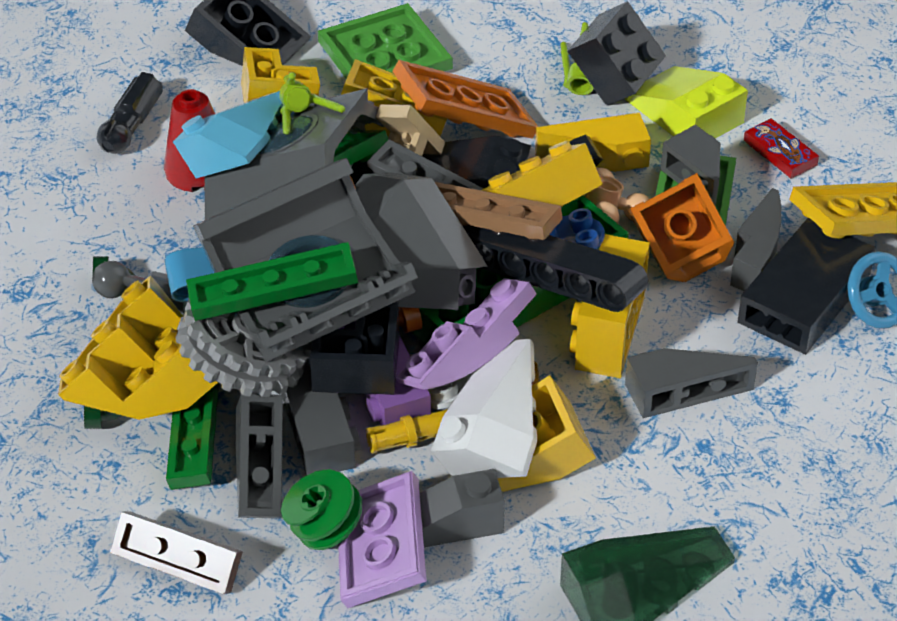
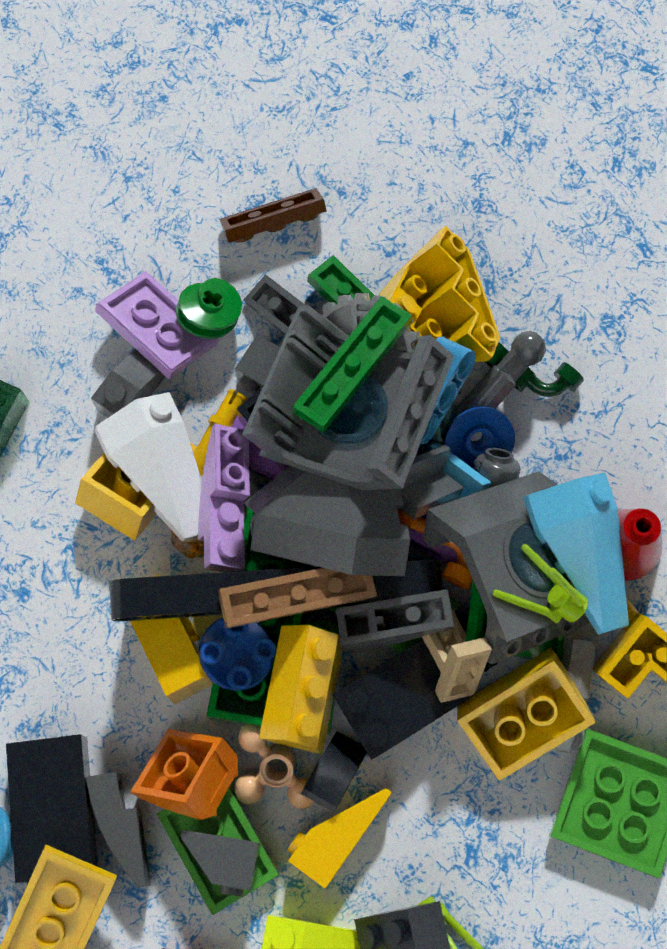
camera: 140 degrees right, 30 degrees up
(464, 100) = (470, 765): orange plate -> none
(683, 378) = (75, 625): dark grey slope -> none

